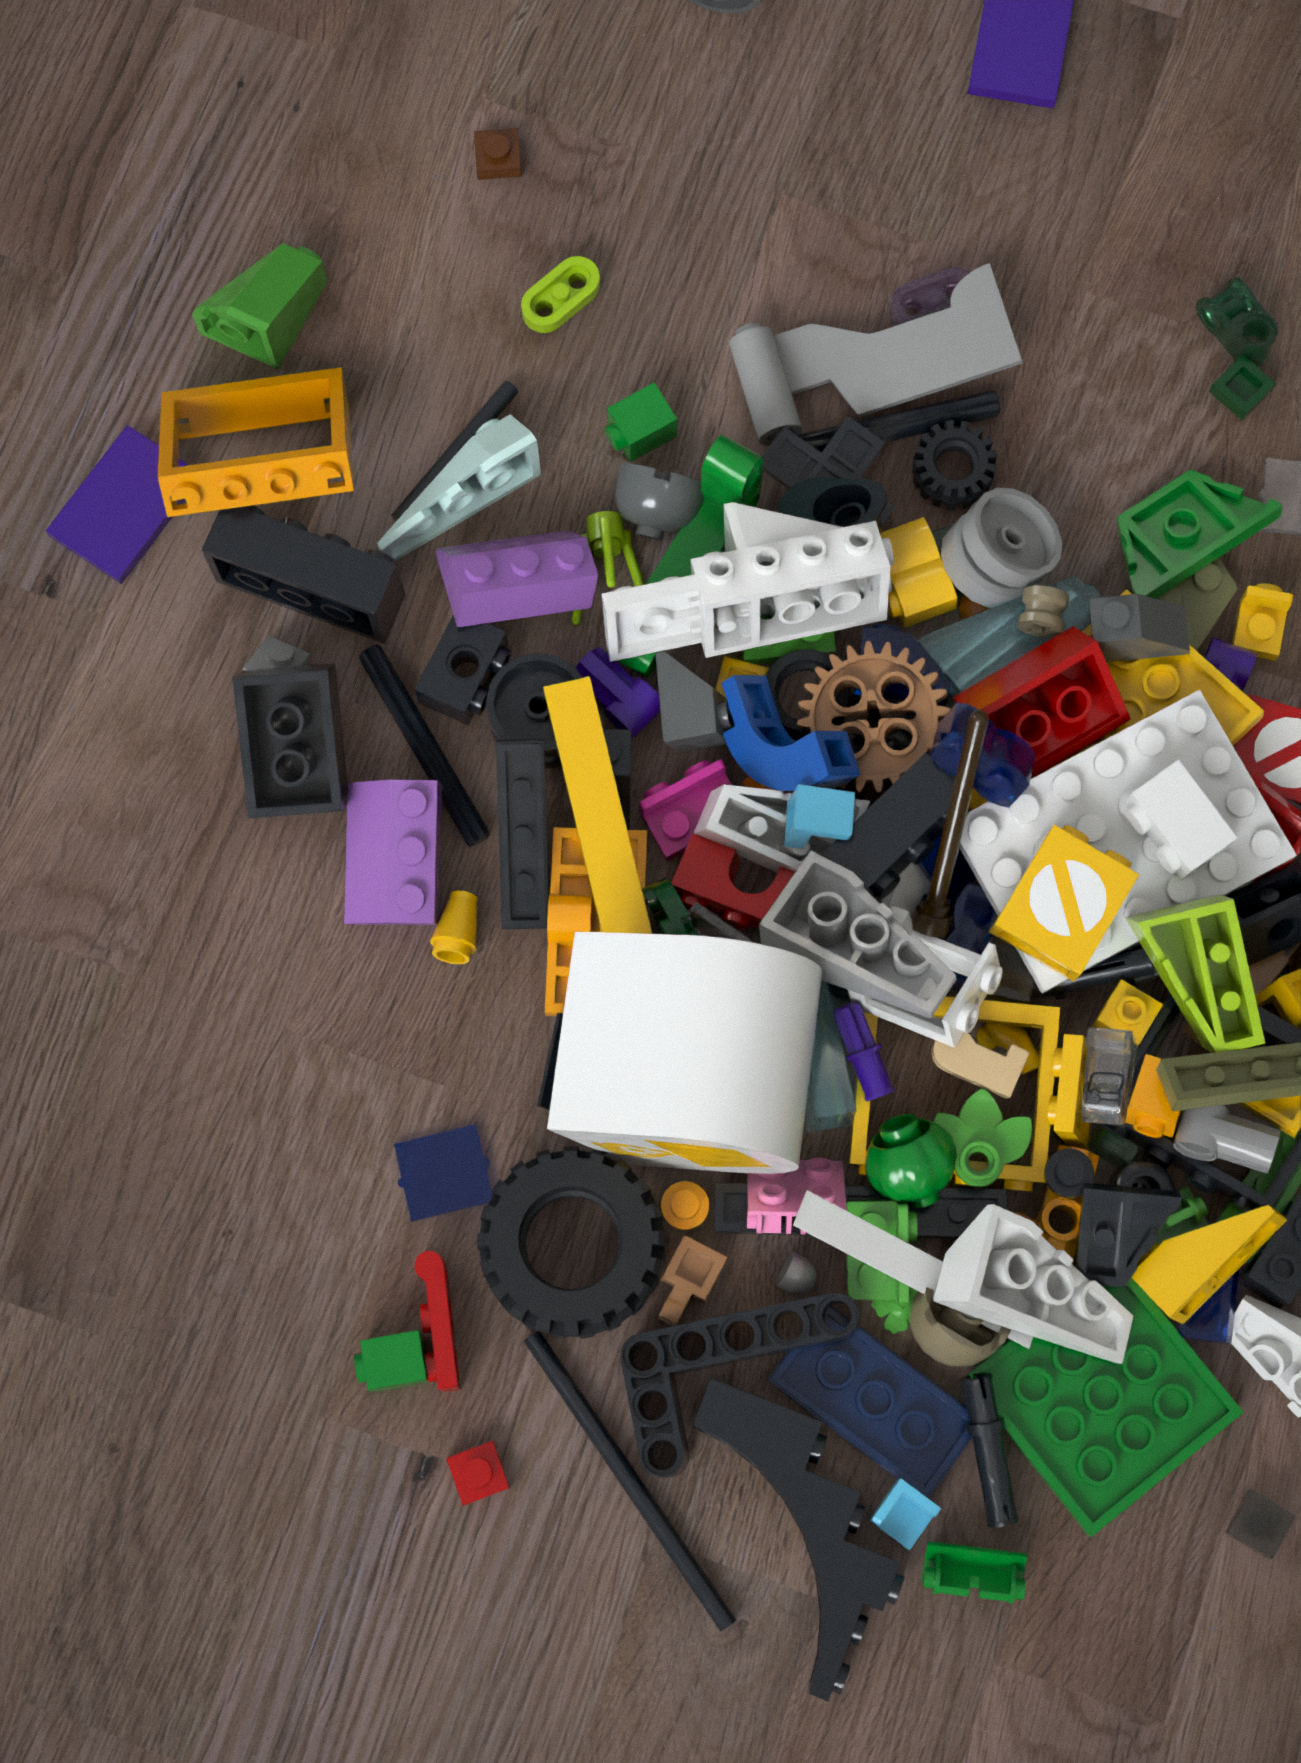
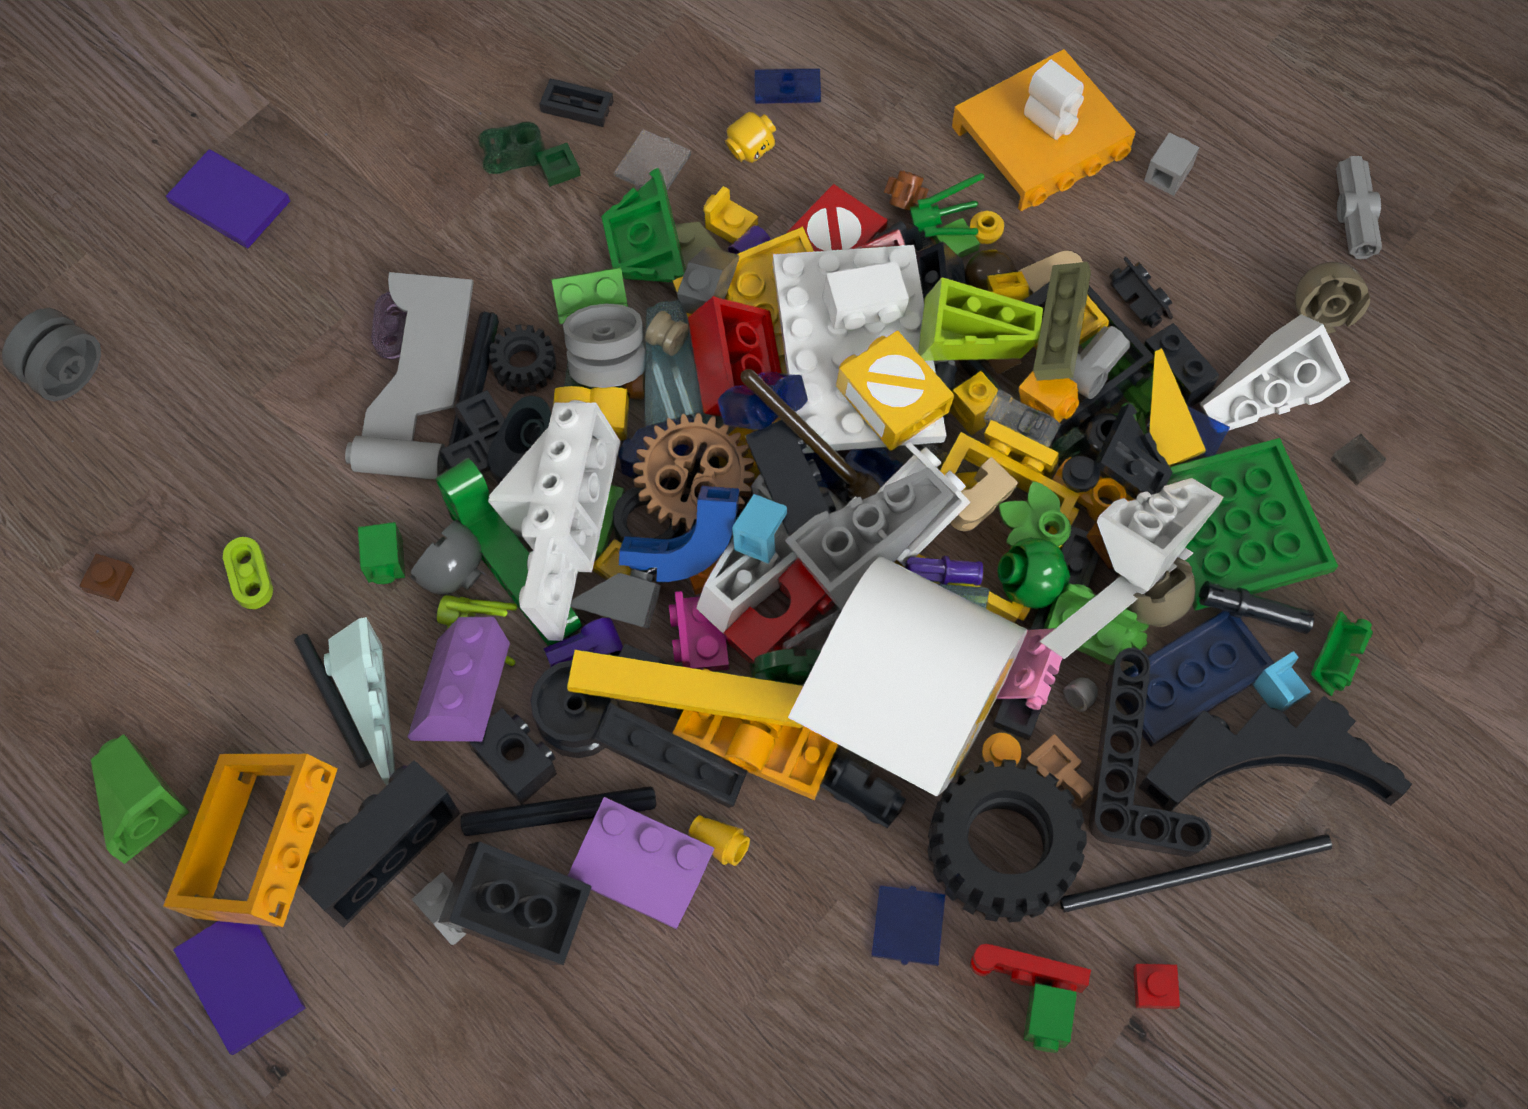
camera: 70 degrees left, 10 degrees down
(1073, 502) = (588, 289): none -> bright green bracket

